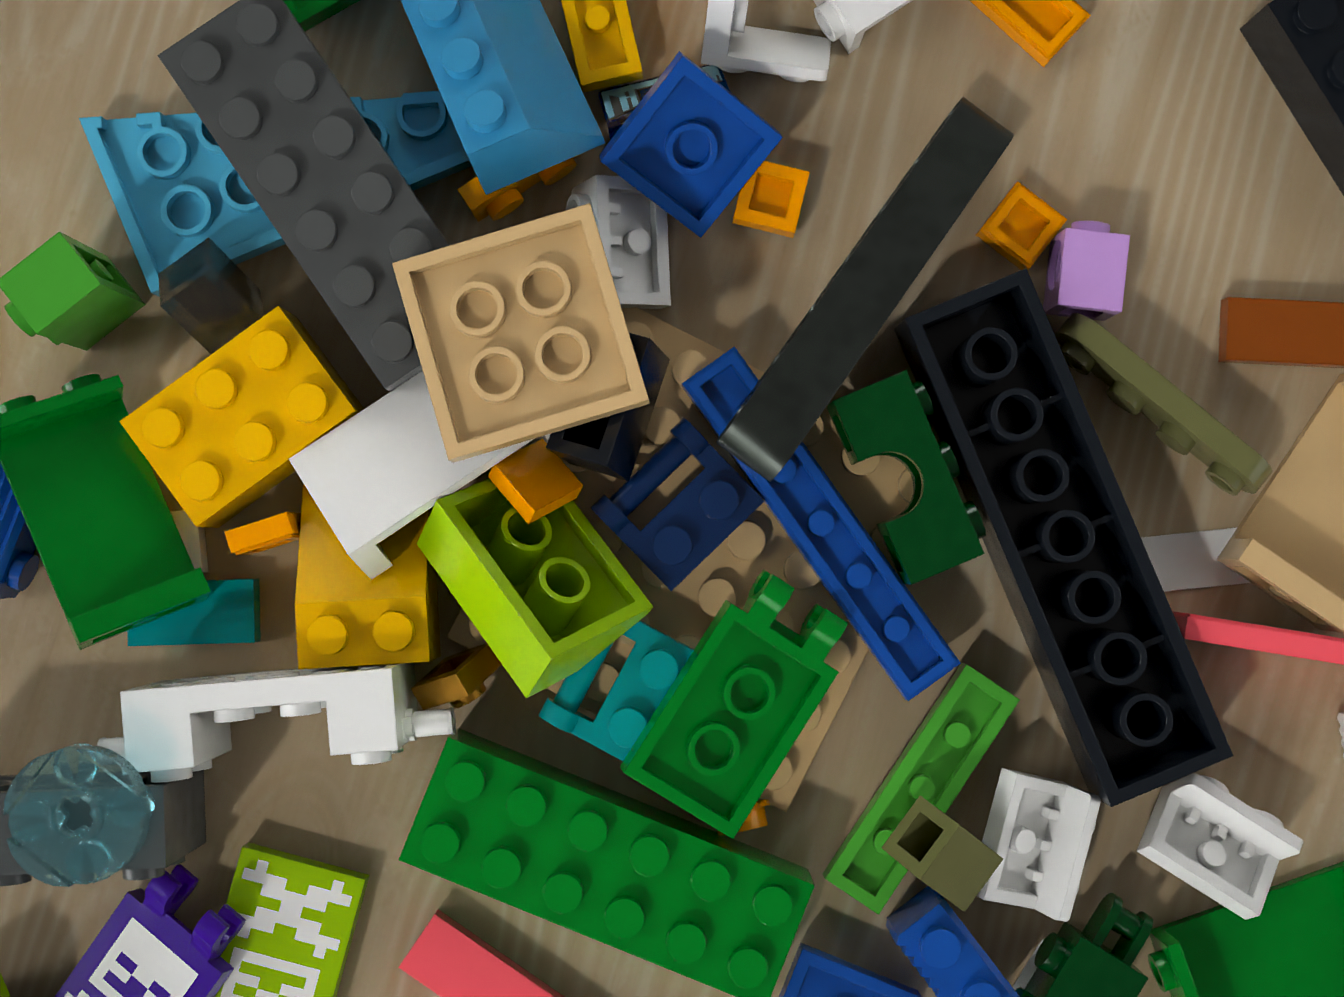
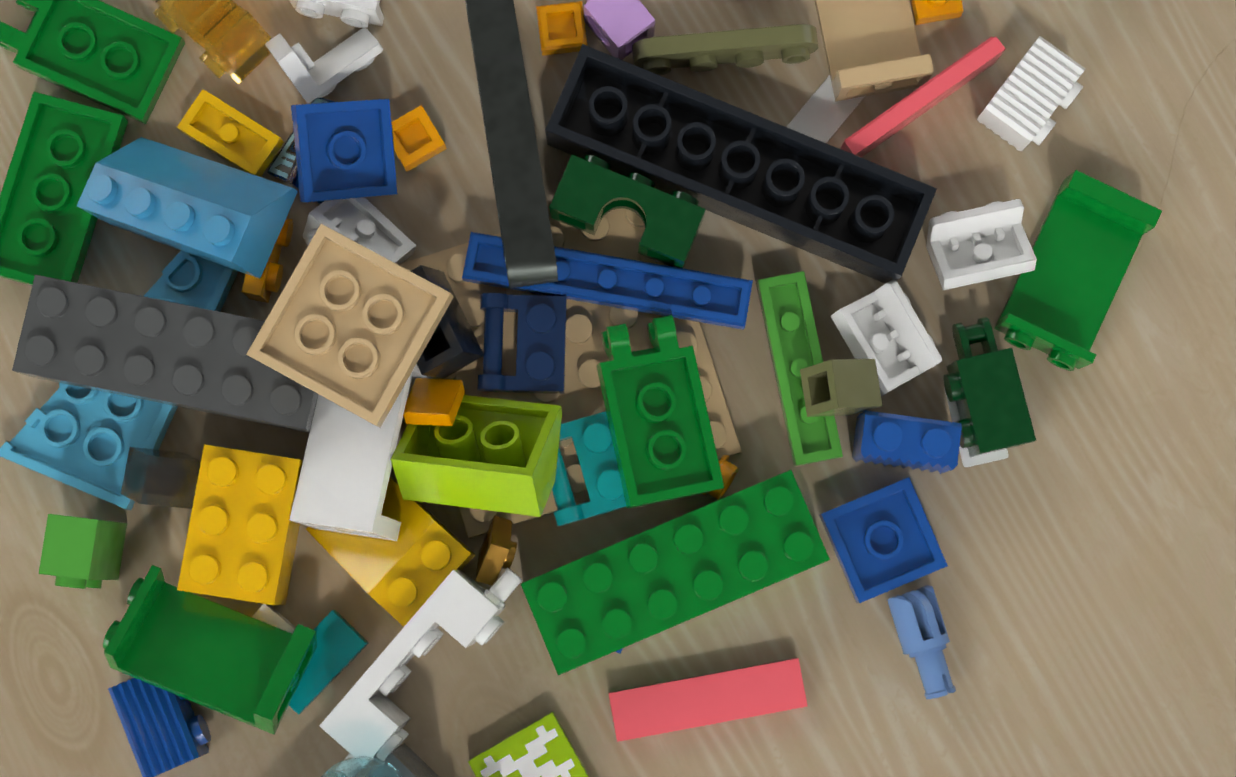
camera: 45 degrees left, 5 degrees down
(264, 534) = (315, 577): light orange tile -> none

